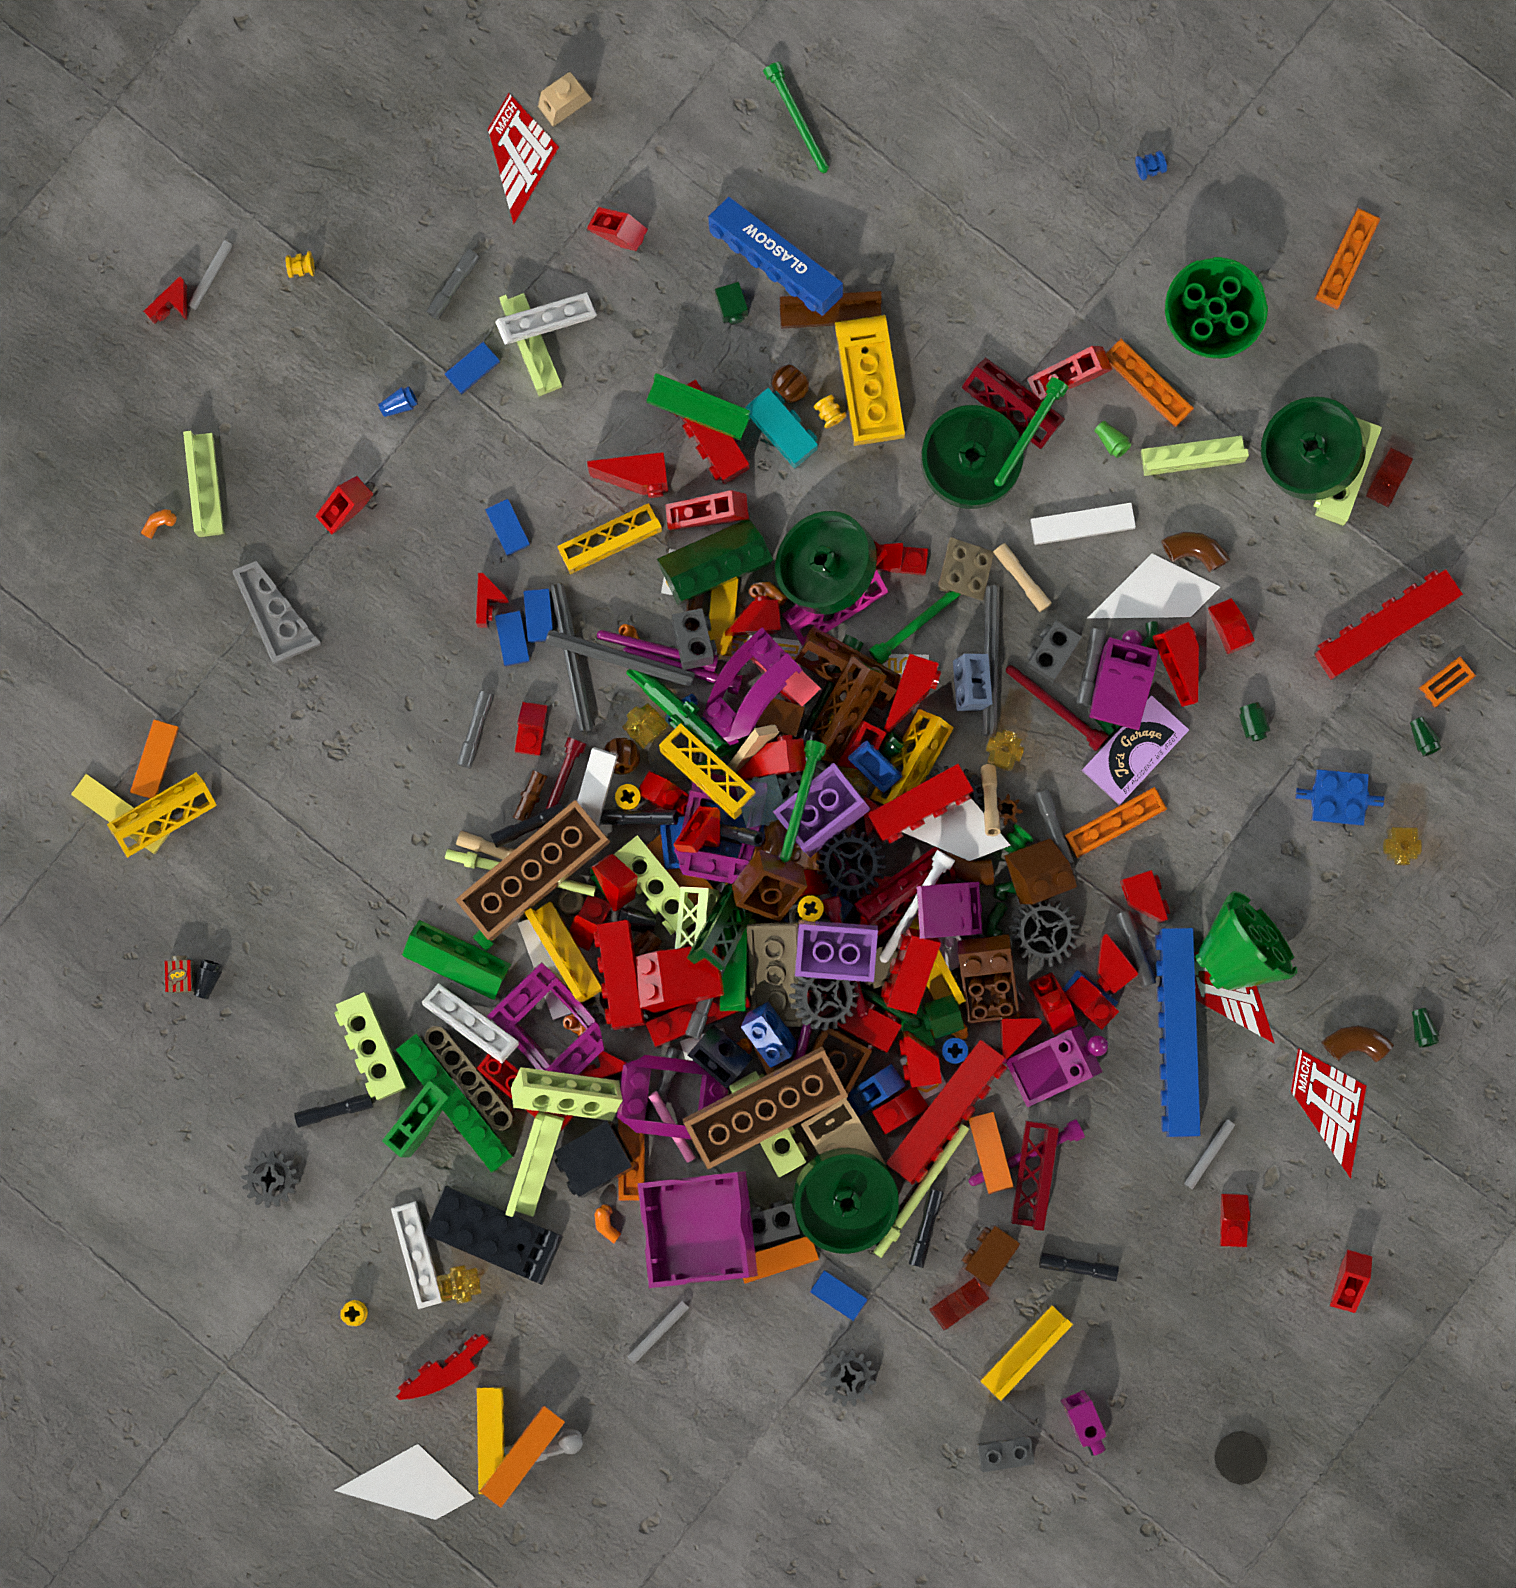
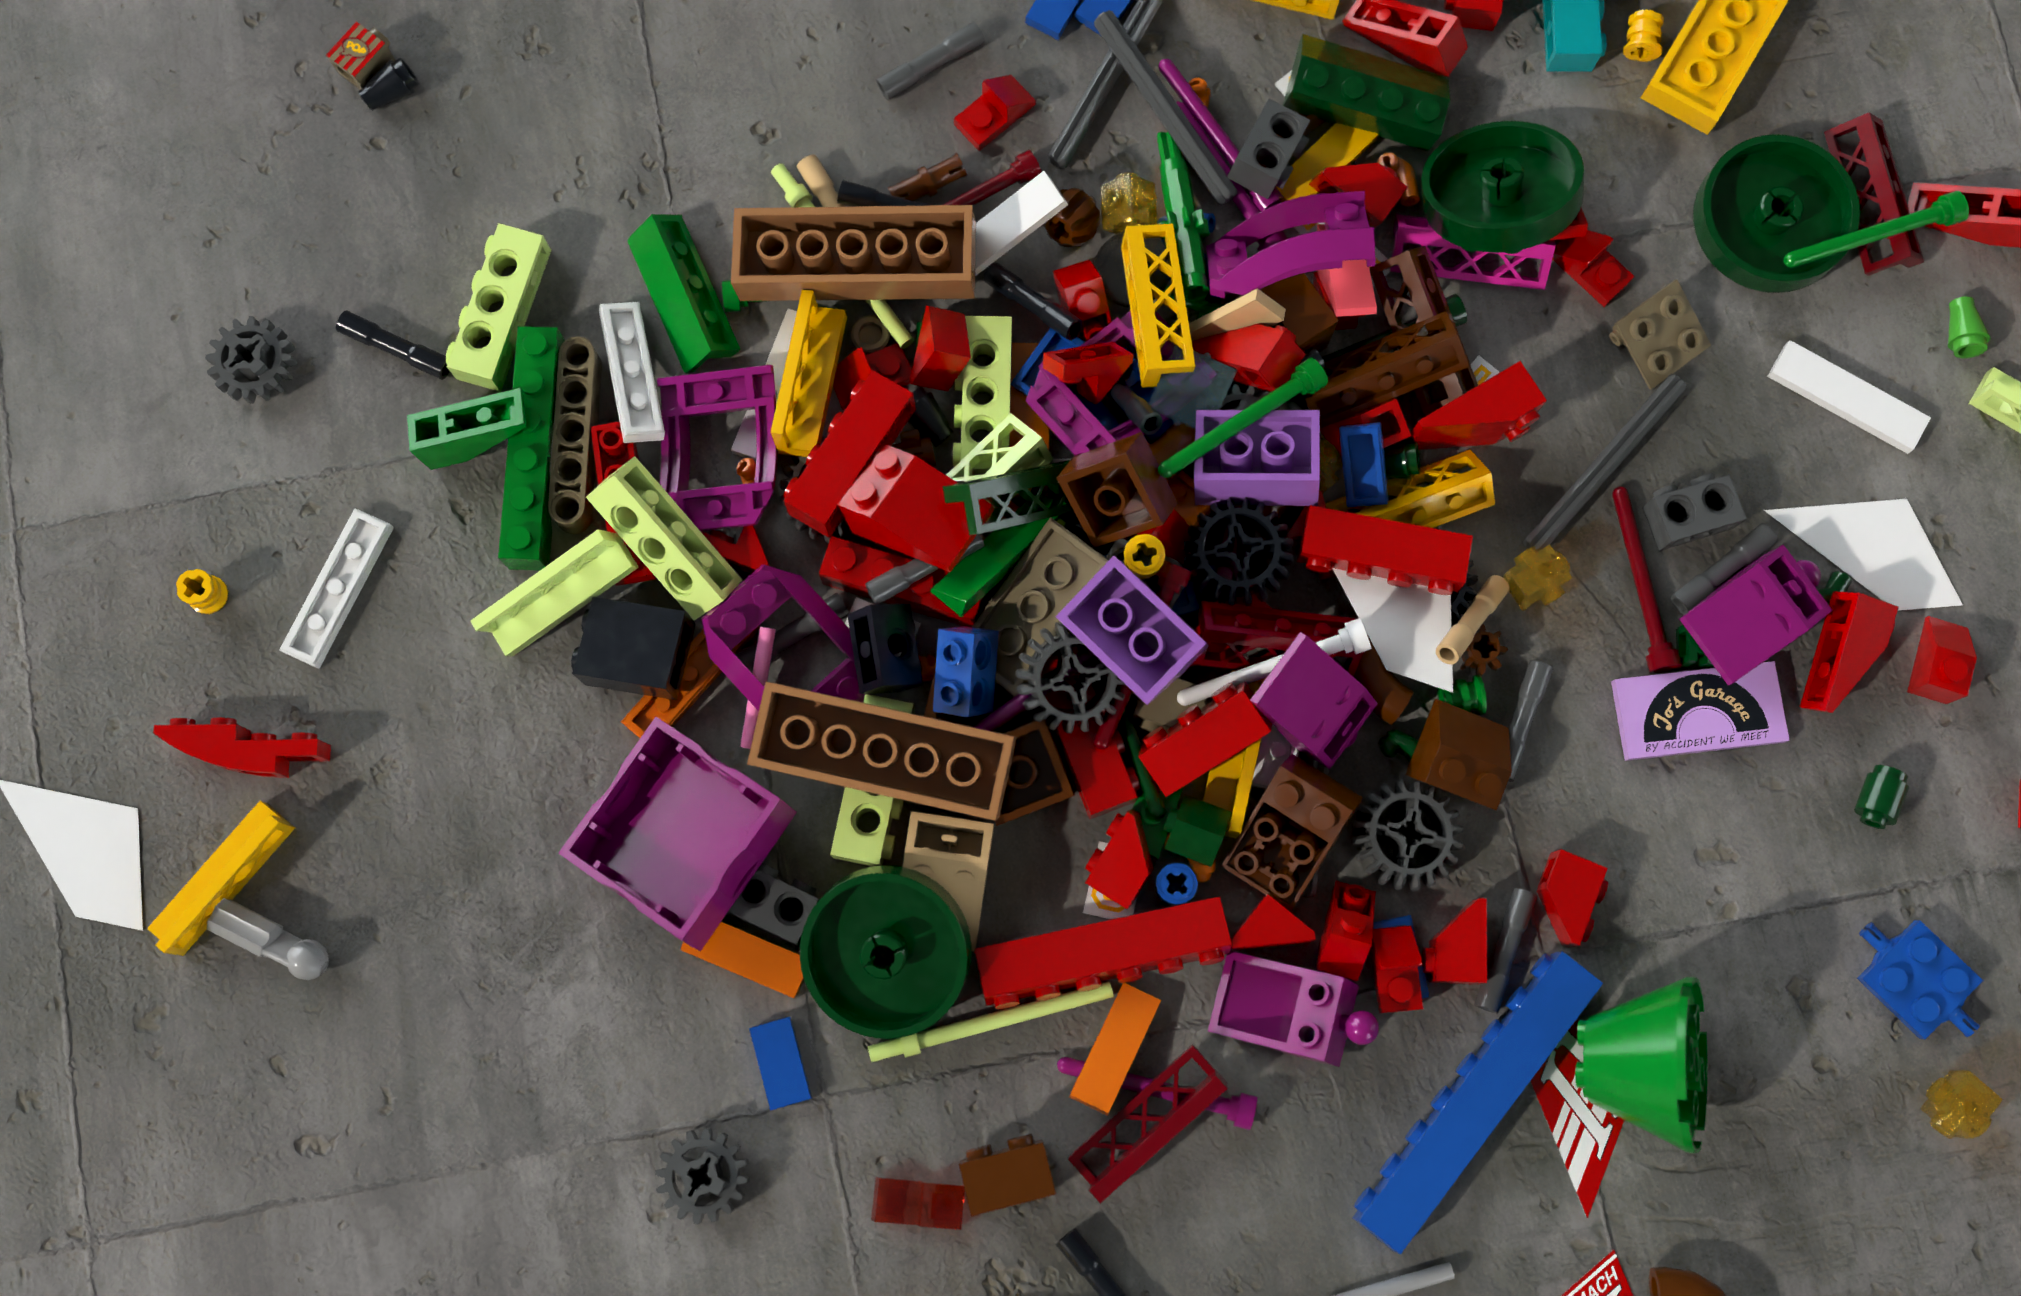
camera: 40 degrees right, 5 degrees down
(459, 1284) = (347, 659): clear yellow brick -> none
(493, 1235) = (433, 632): black hinge -> none
(522, 1456) = (226, 925): orange tile -> none
(603, 1224) = (578, 735): orange arm -> none
(631, 790) = (1038, 258): yellow bush -> none
(658, 1332) = (528, 919): light grey bar -> none
(875, 1090) = (1037, 850): blue slope -> none
(882, 651) = (1483, 348): green piece -> none
(900, 1110) = (1047, 899): red slope -> none
(921, 1245) = (936, 1087): black piece -> none
(972, 682) = (1564, 466): sand blue brick -> none
(993, 920) = (1358, 767): dark green arm -> none
(1012, 564) = (1723, 424): tan piece -> none
(1115, 822) = (1604, 777): orange tile -> none
(1198, 546) = (1975, 530): reddish brown cylinder -> none

